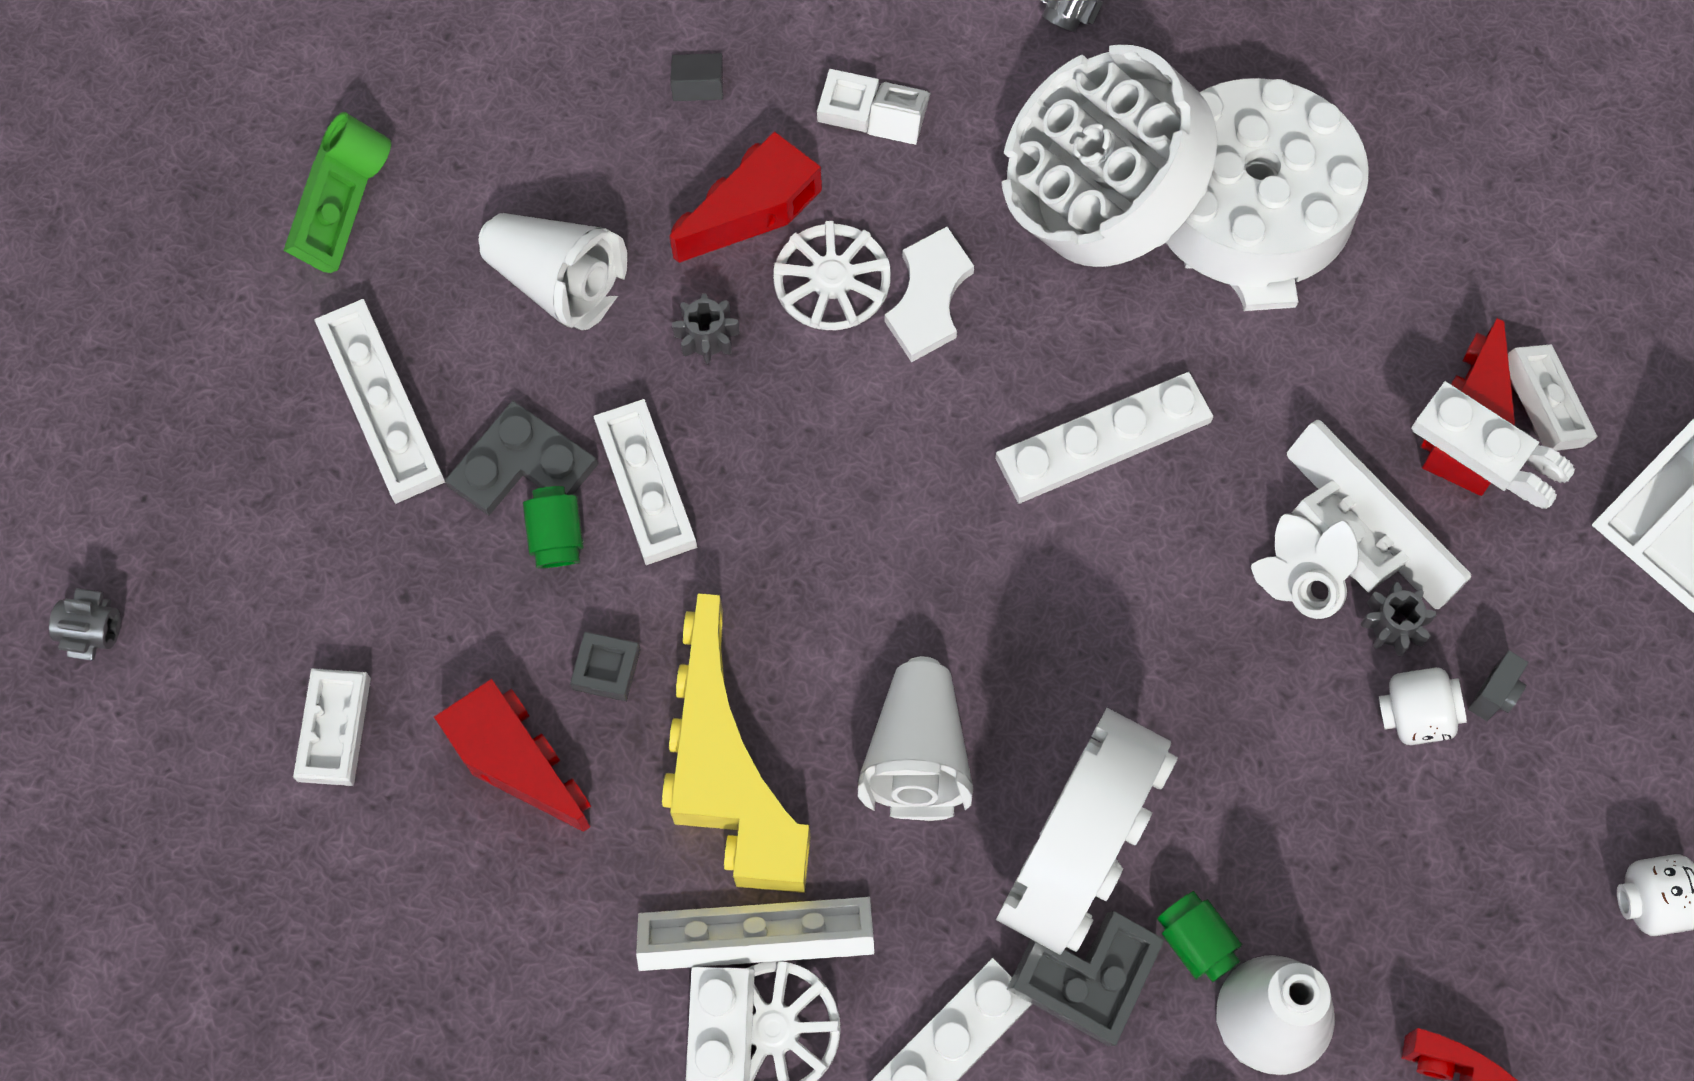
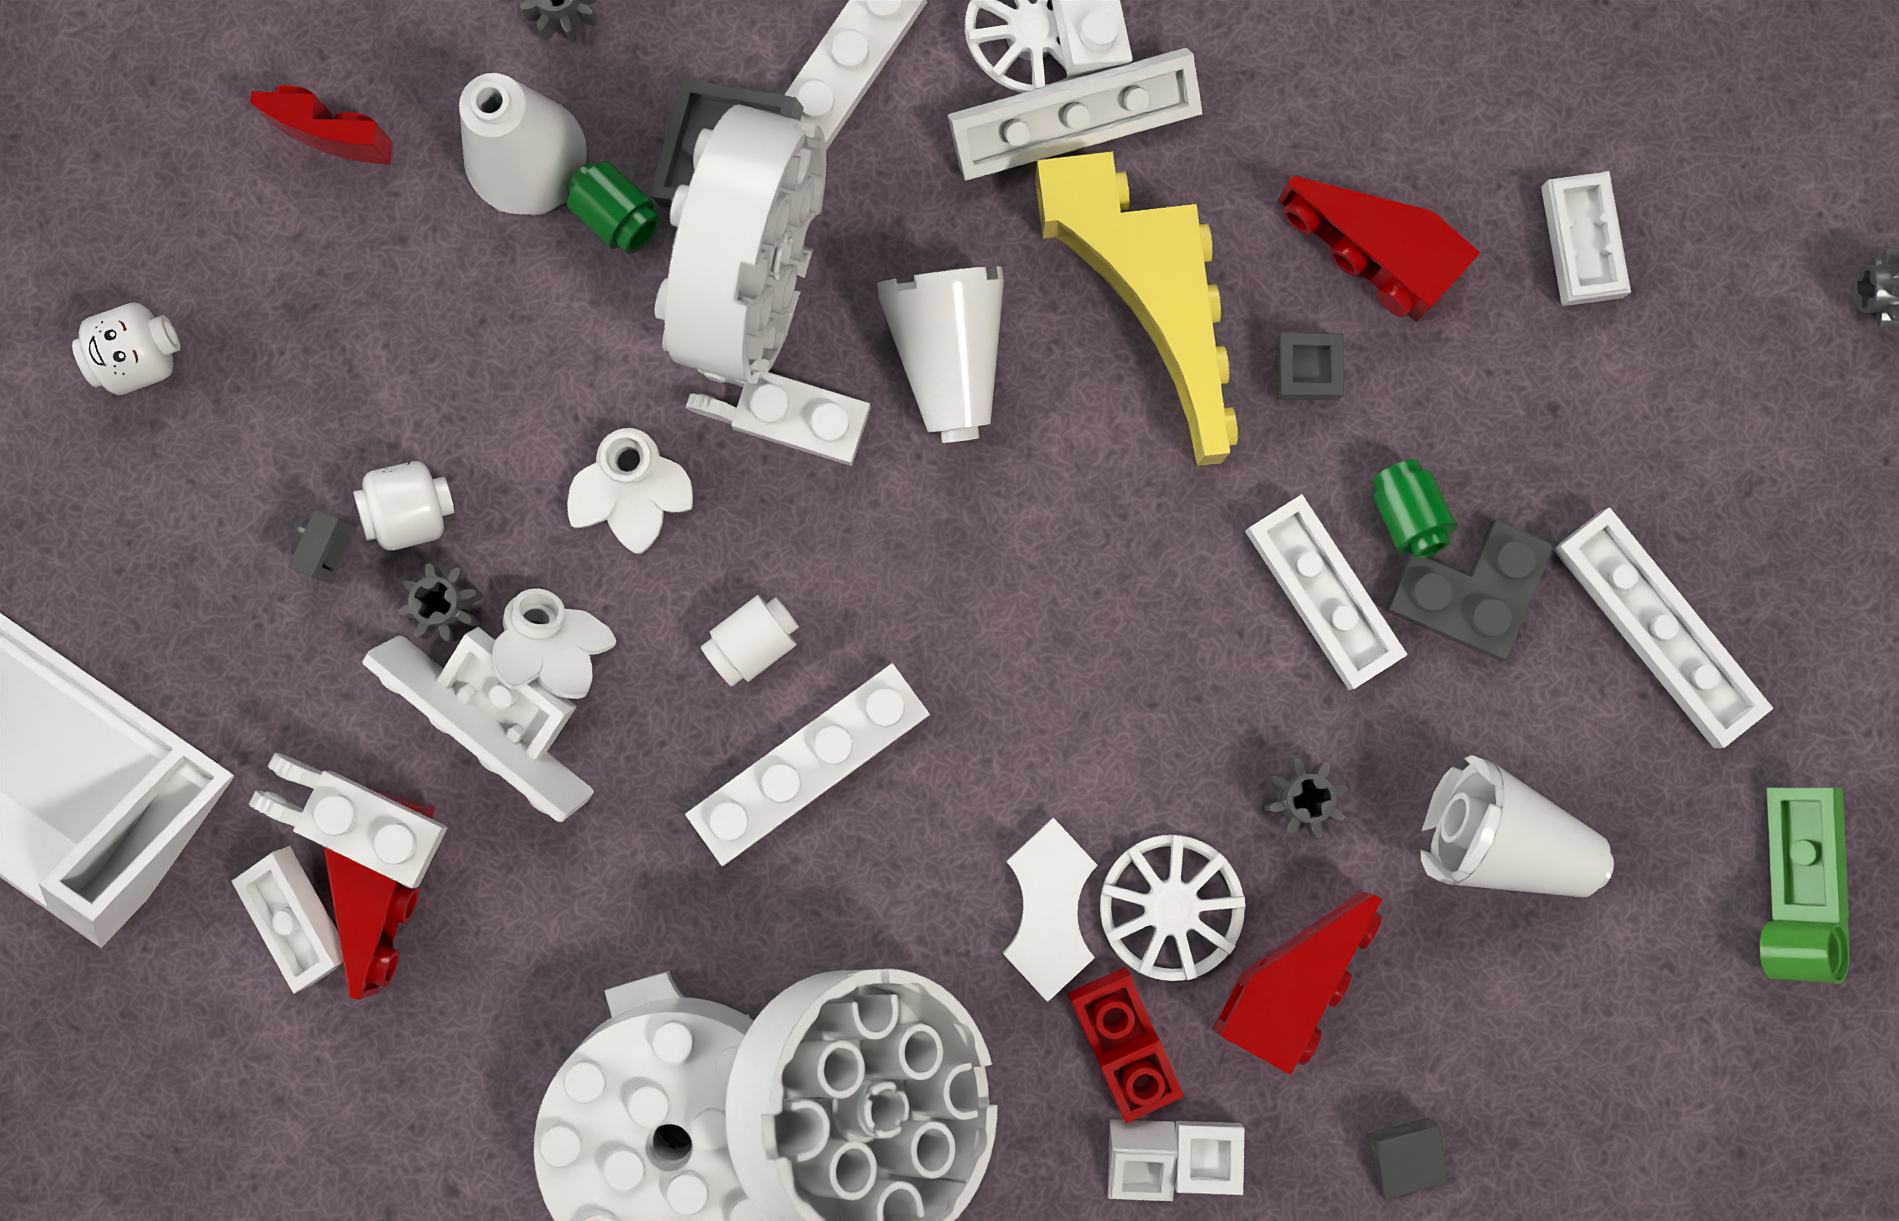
camera: 165 degrees right, 15 degrees up
(892, 189) = (1125, 1044): none -> red slope
(1050, 714) = (790, 415): none -> white hinge
(1136, 537) = (750, 640): none -> white brick
(1222, 680) = (631, 499): none -> white plate

